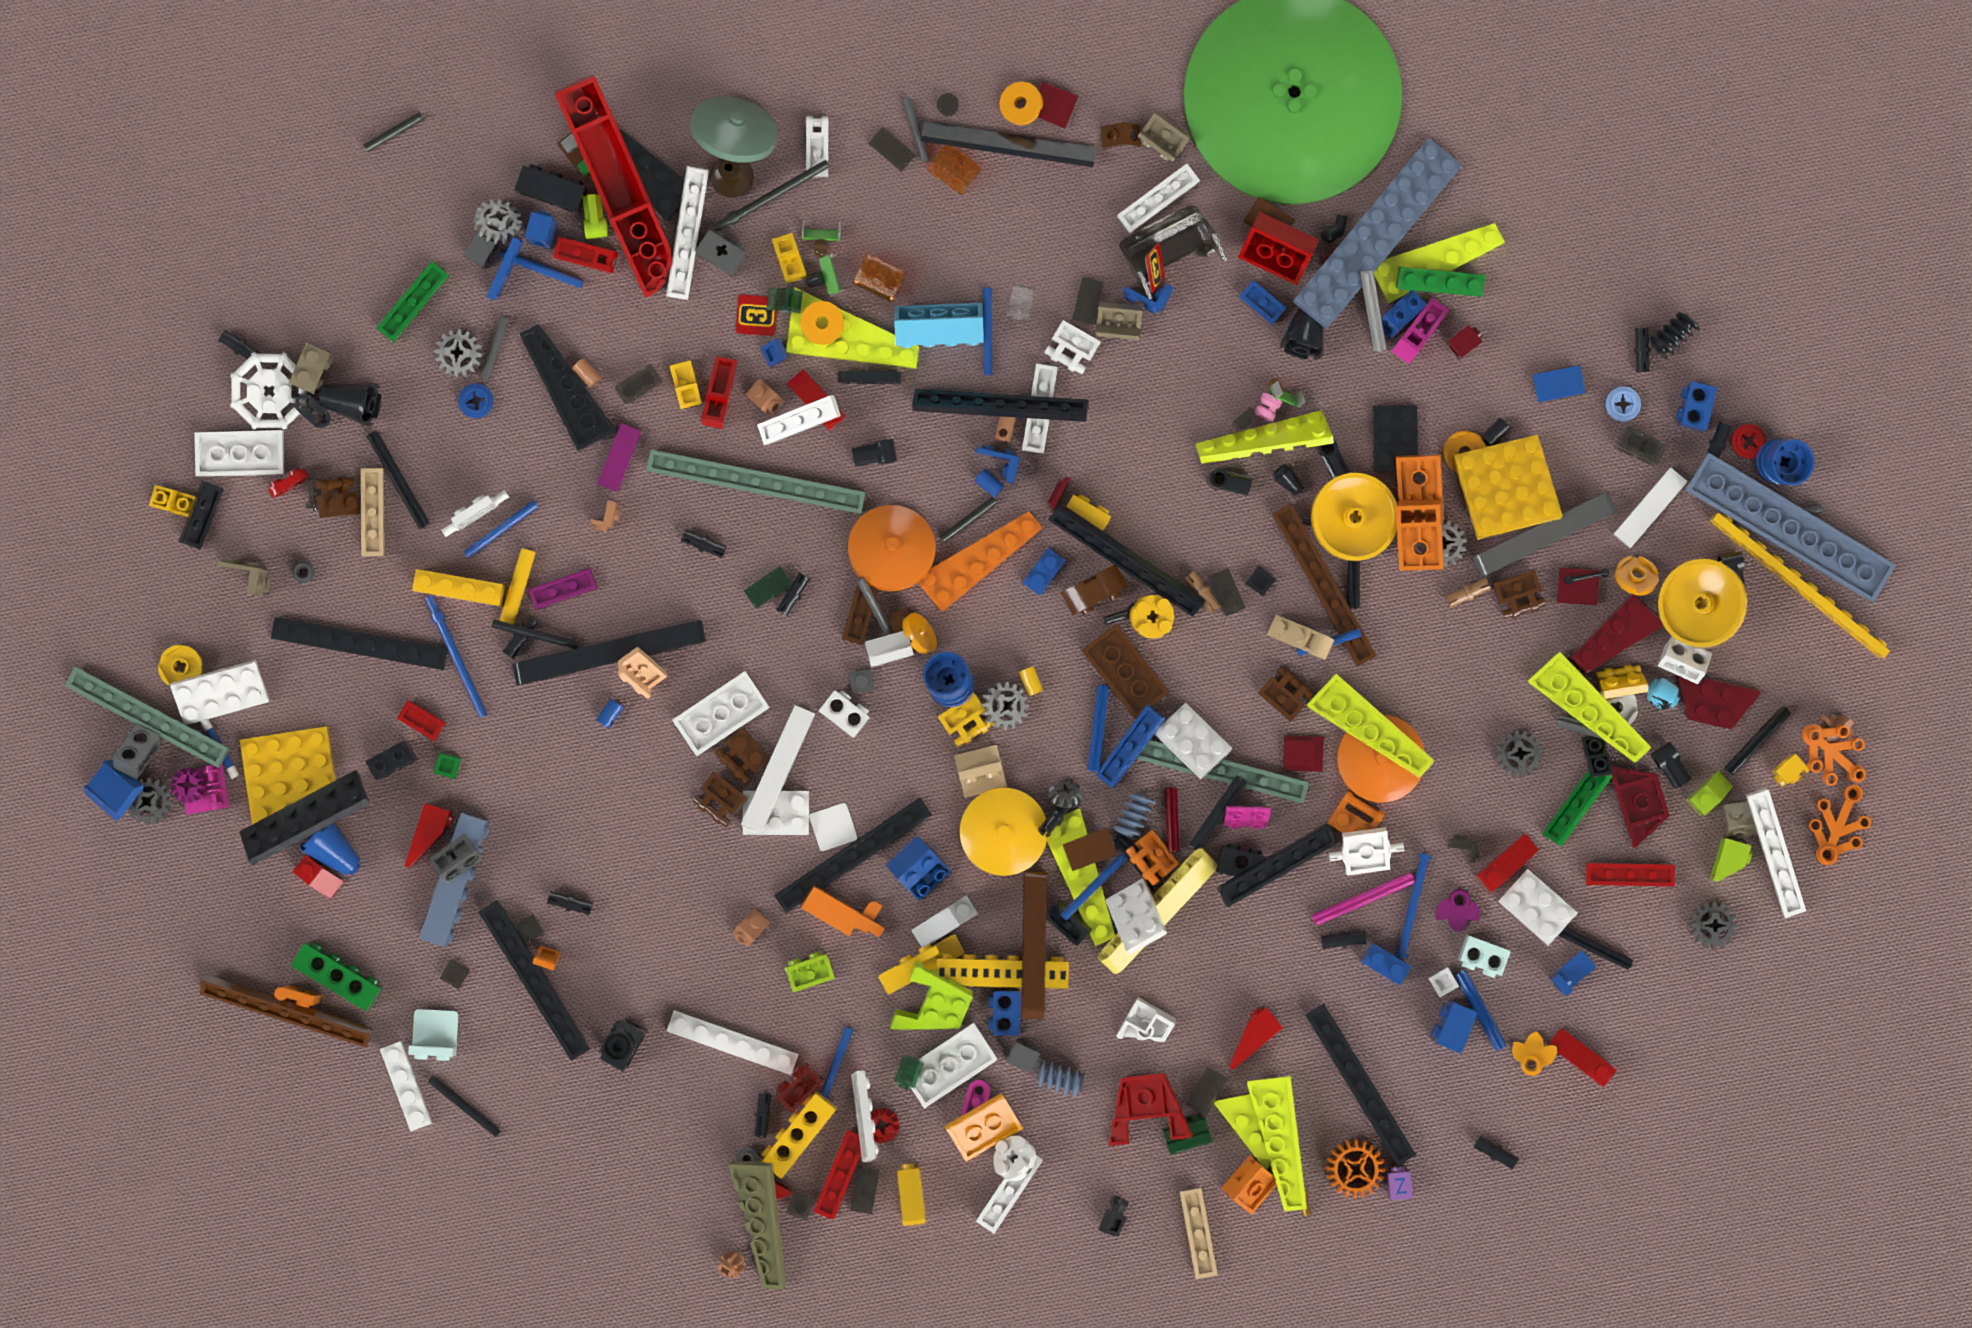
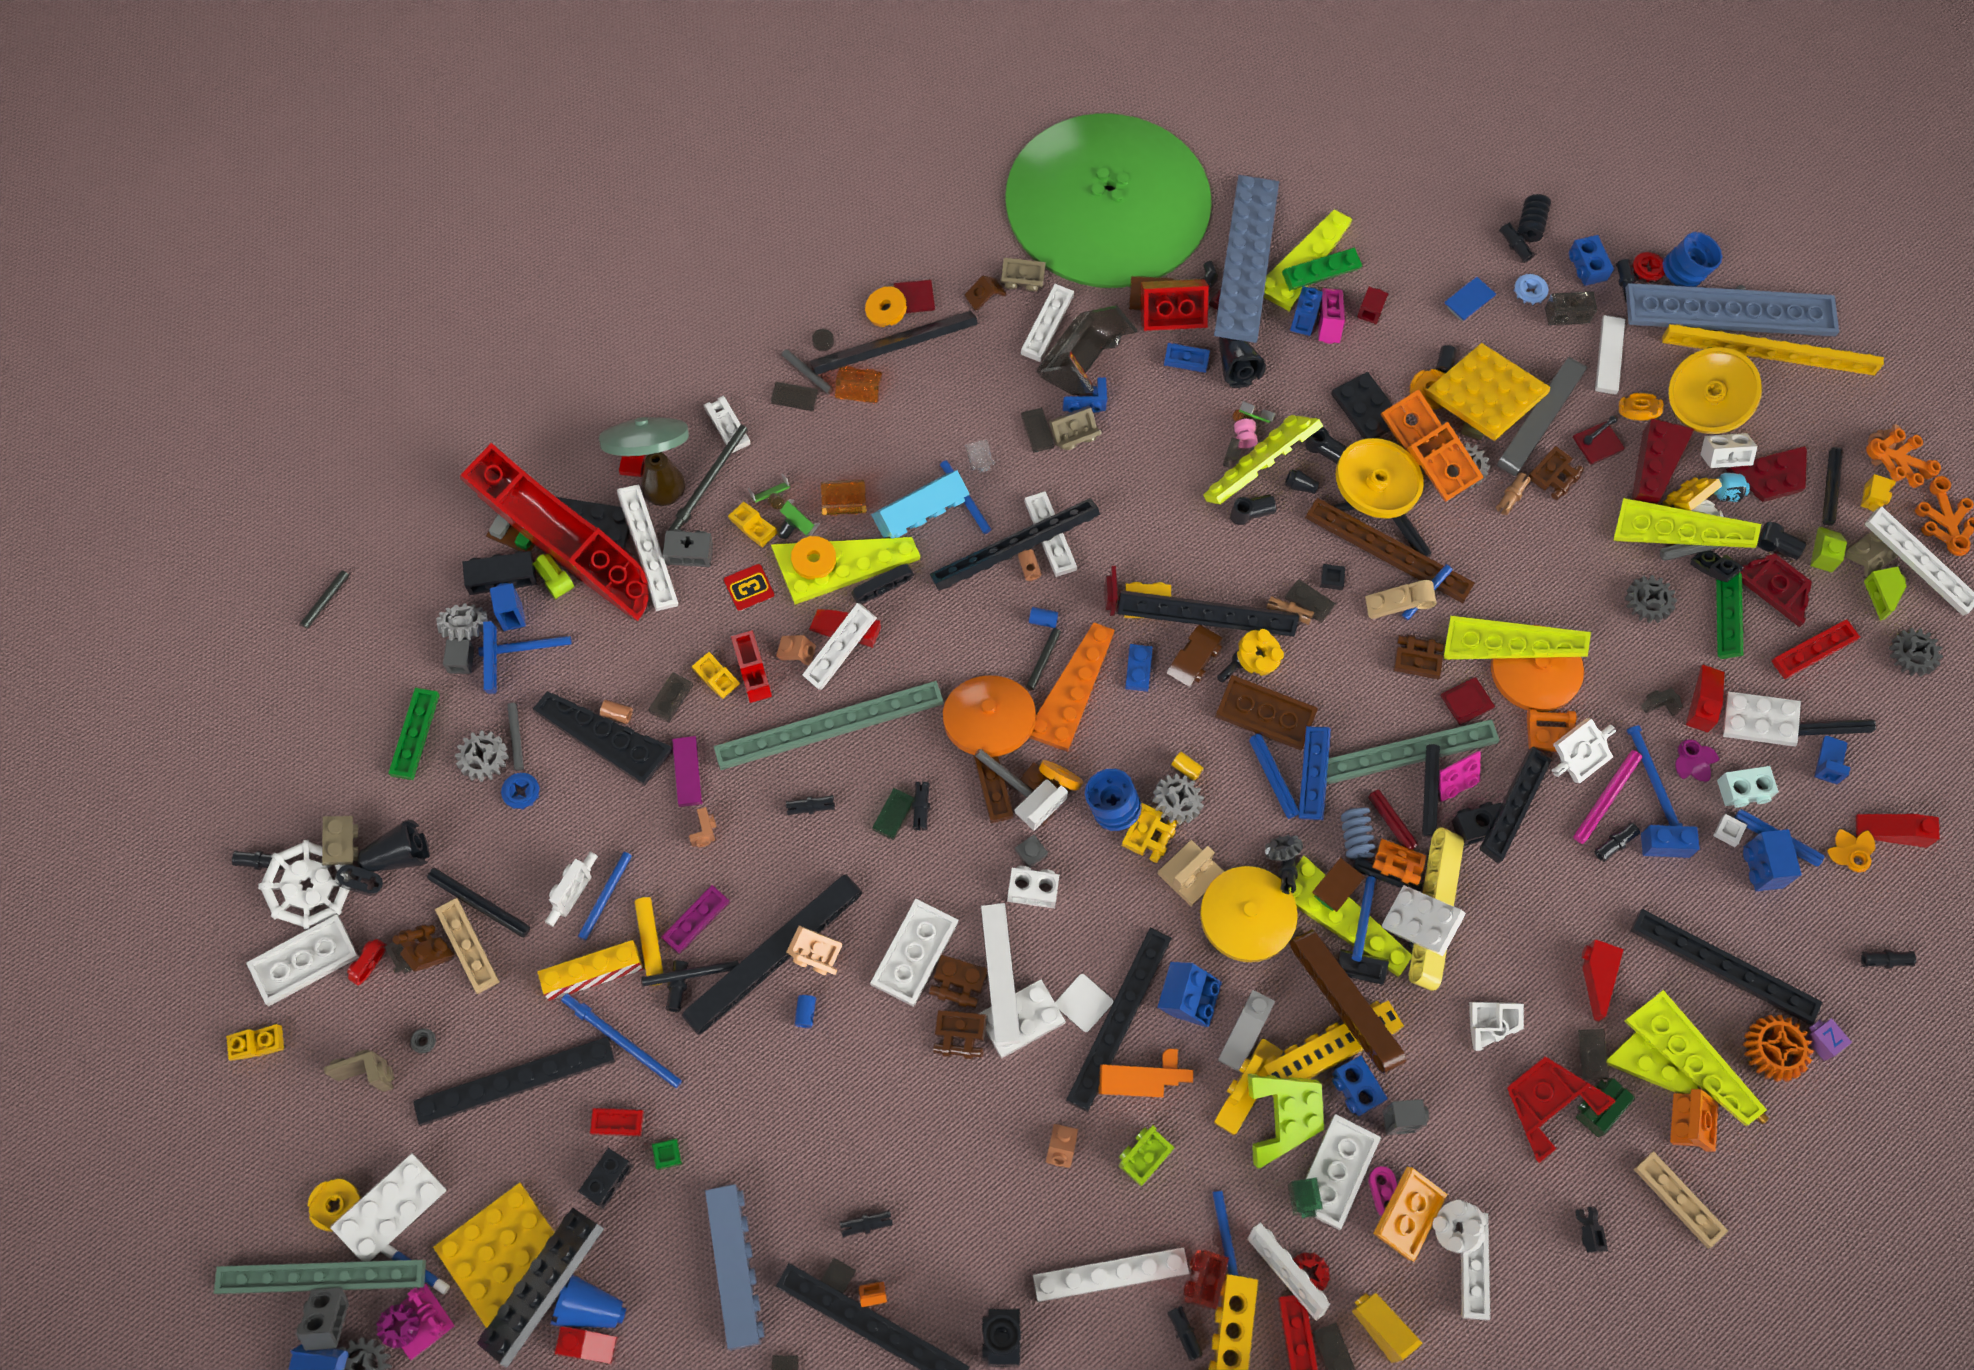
camera: 35 degrees left, 20 degrees down
(201, 515) = (288, 1040): black tile -> none
(430, 828) = (681, 1229): red slope -> none
(455, 858) = (724, 1237): dark grey brick -> none
(584, 255) = (561, 612): red plate -> none
(774, 352) = (783, 606): blue plate -> none
(784, 300) = (768, 556): clear green brick -> none
(879, 452) = (930, 640): black piece -> none
(1009, 469) = (1045, 586): blue bracket -> none
(1060, 1079) = (1452, 1120): sand blue piece -> none
(1076, 341) = (1047, 464): white plate -> none
(1193, 741) = (1367, 738): white plate -> none
(1373, 310) = (1284, 312): light grey axle -> none

